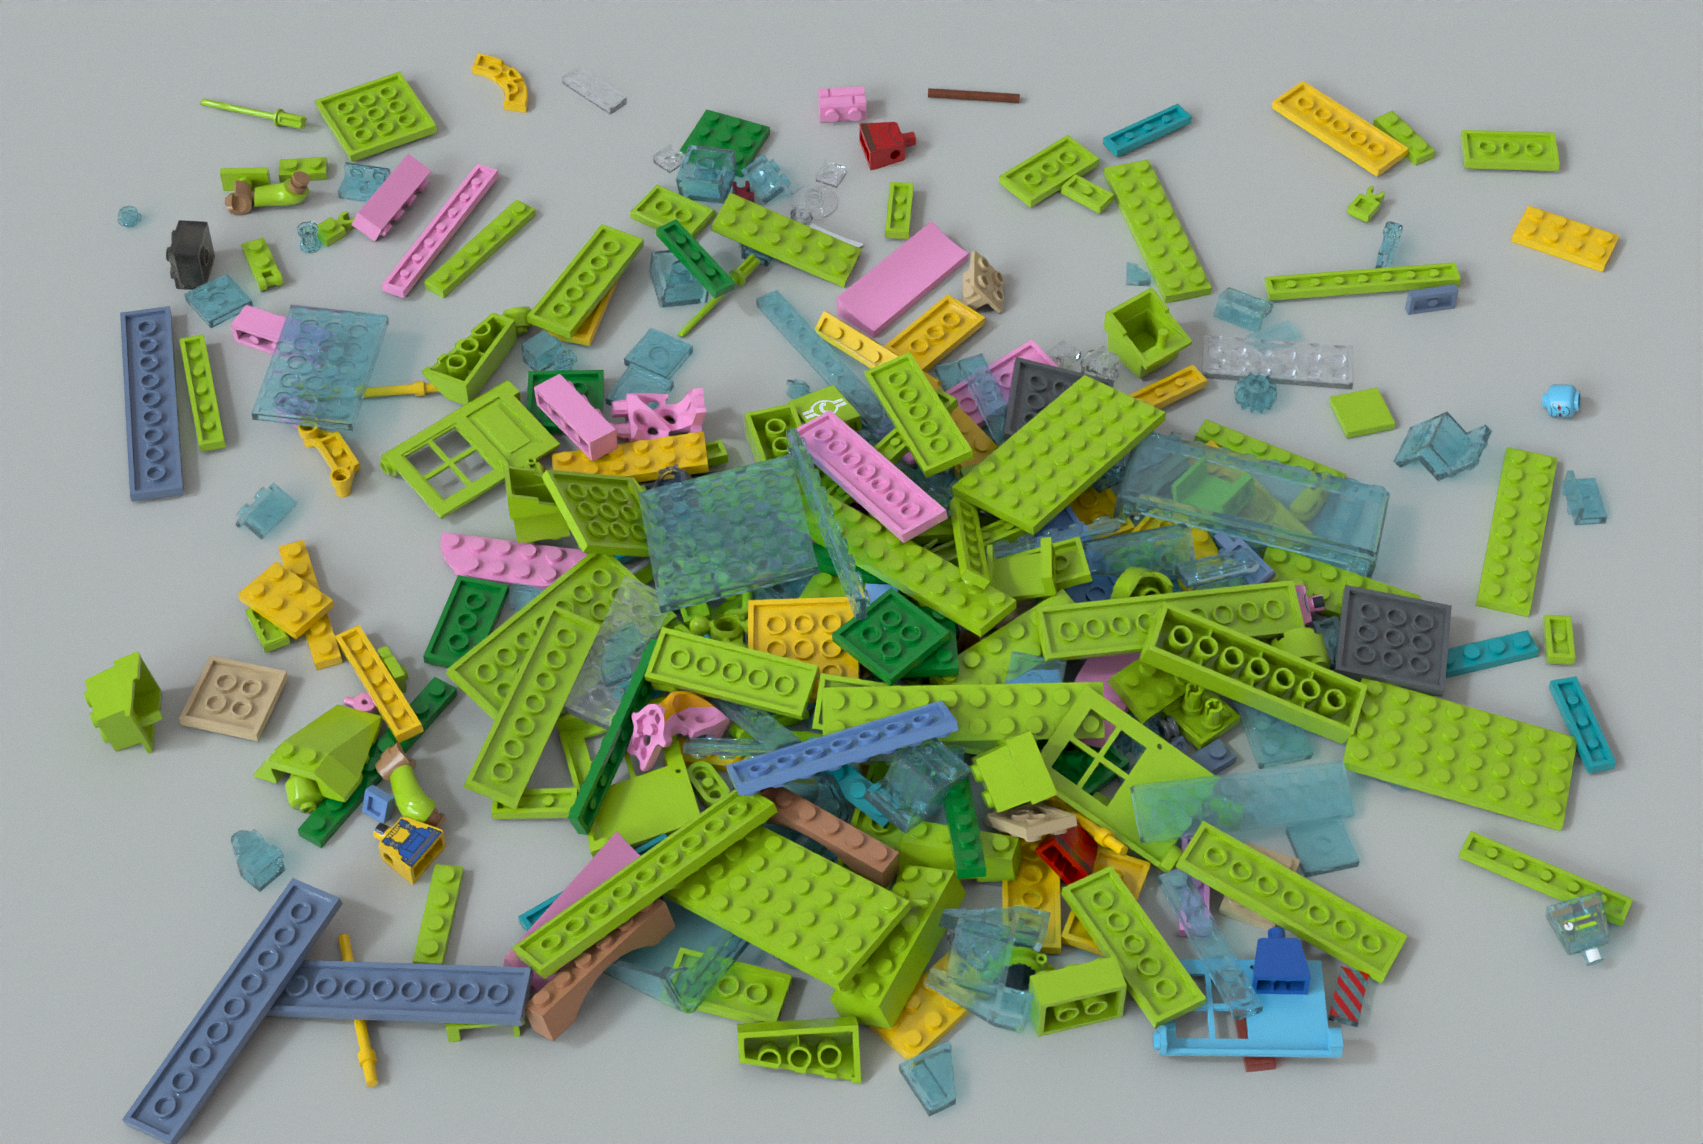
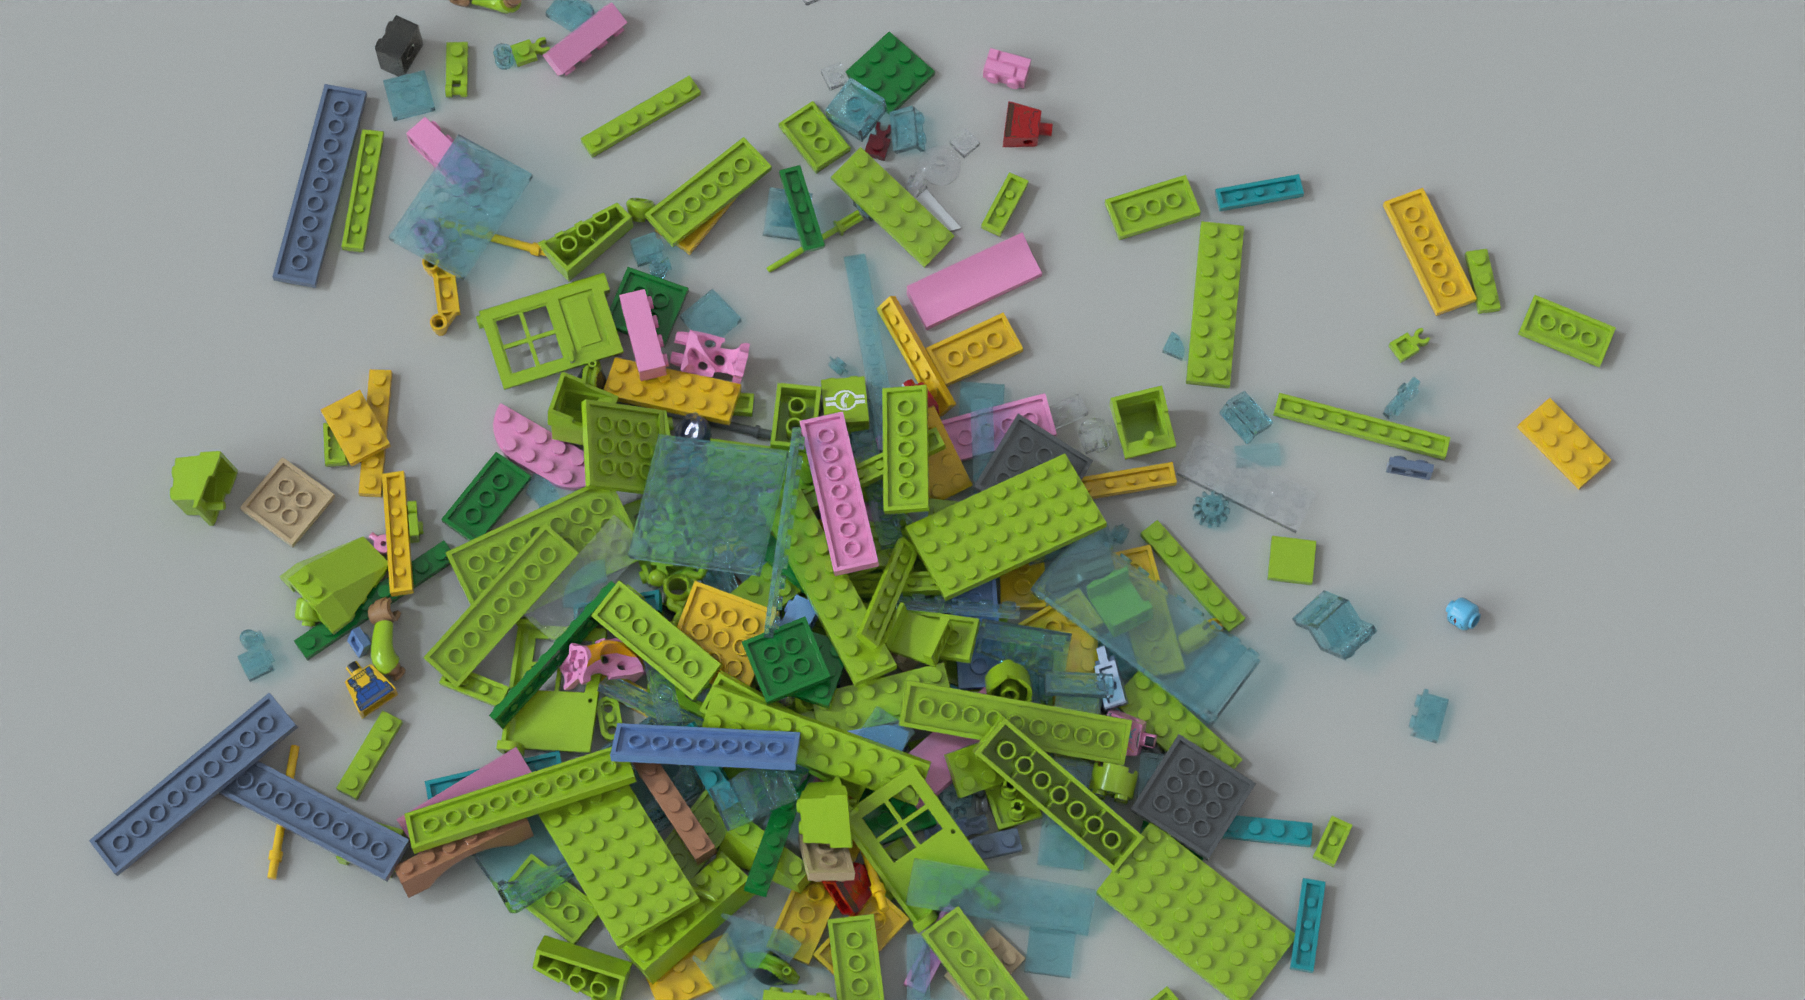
camera: 20 degrees right, 20 degrees up
(266, 511) = (371, 331): clear light blue bracket -> none
(440, 231) = (614, 87): bright pink plate -> none
(659, 354) = (741, 285): clear light blue plate -> none
(973, 95) = (1128, 96): copper bar -> none
(982, 284) = (1037, 314): tan bracket -> none
(1087, 193) = (1173, 245): lime plate -> none
(1516, 532) = (1357, 724): lime plate -> none

